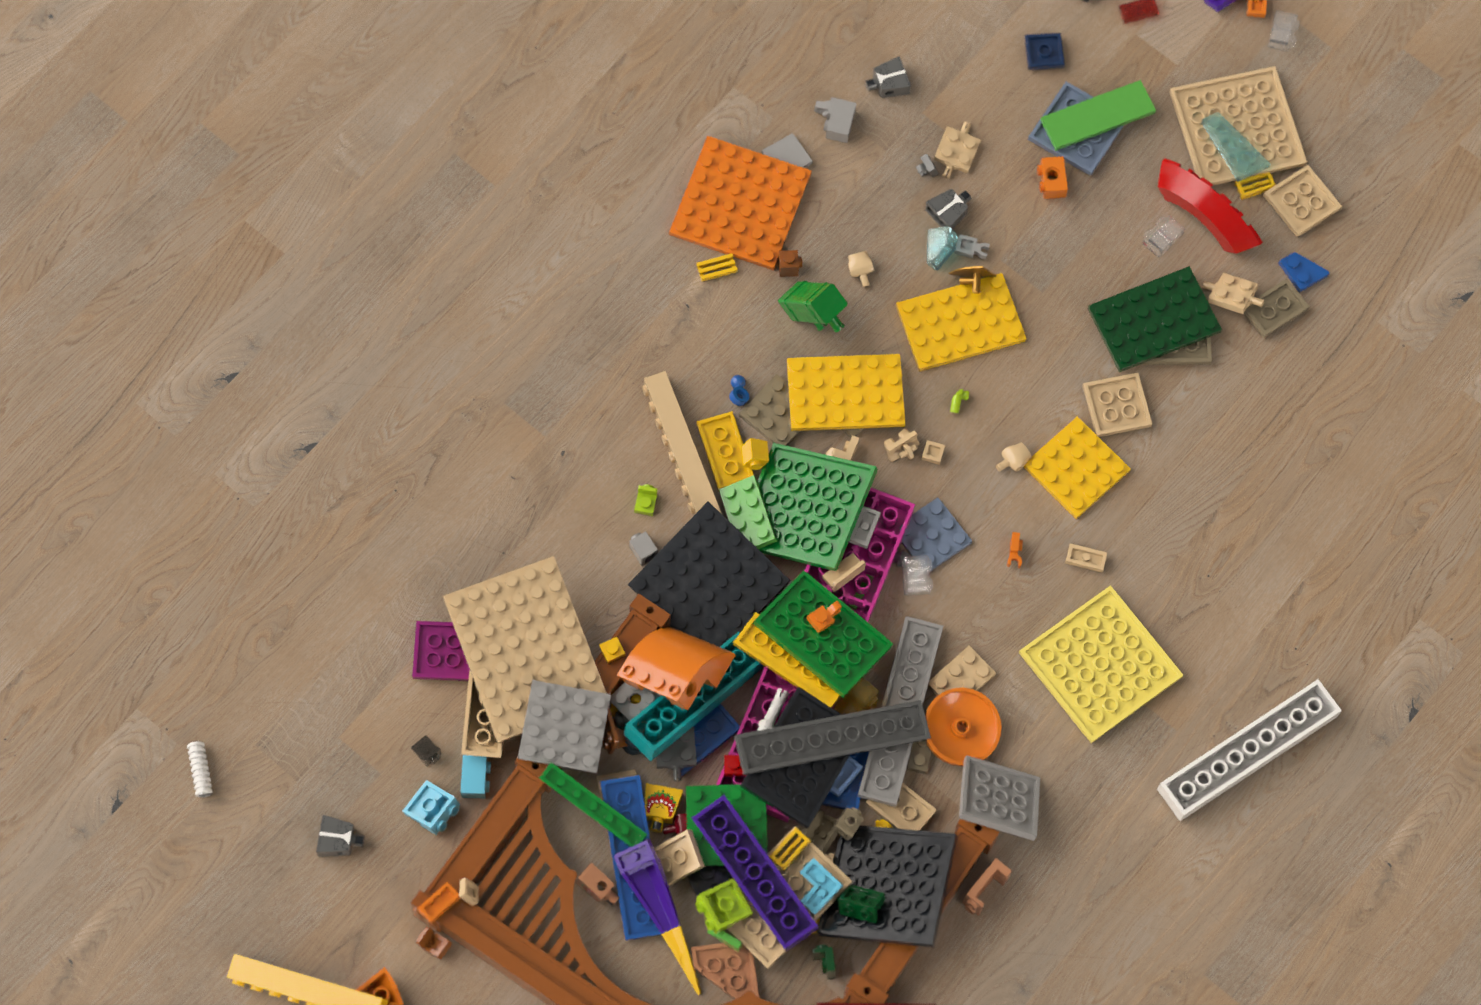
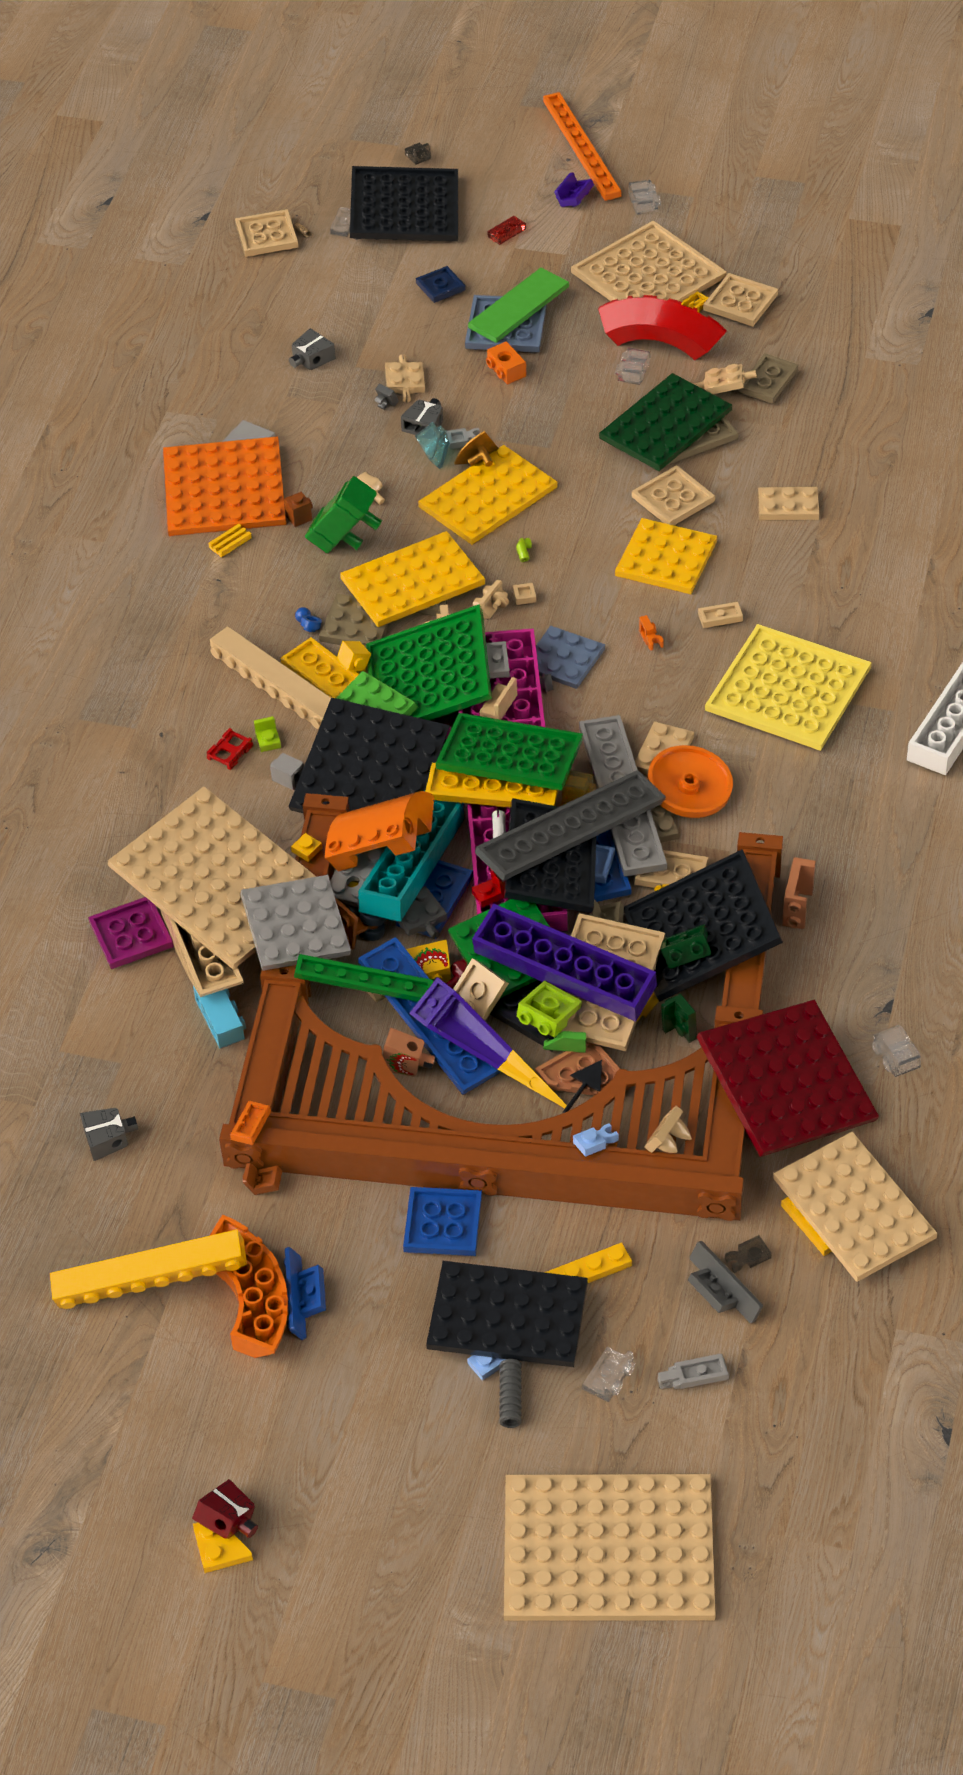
camera: 20 degrees left, 20 degrees down
(426, 751) = (160, 1021): clear smoke bracket -> none
(432, 807) = (194, 1063): medium azure plate -> none
(468, 891) = (276, 1101): tan tile -> none
(612, 503) = (236, 751): none -> red piece
(727, 977) = (588, 1076): none -> black piece
(778, 861) = (591, 915): yellow tile -> none
(823, 618) = (502, 736): orange plate -> none
(824, 886) = (638, 943): medium azure plate -> none
(839, 118) = (279, 392): light grey hinge -> none
(842, 826) = (629, 891): dark tan brick -> none
(916, 575) = (569, 685): clear brick -> none
(999, 798) = (765, 815): light grey plate -> none
(1015, 457) = (604, 568): tan piece -> none
(1213, 460) = (788, 503): none -> tan plate
(1234, 148) = (655, 282): clear light blue wing -> none
(1302, 271) = (774, 345): blue wing -> none

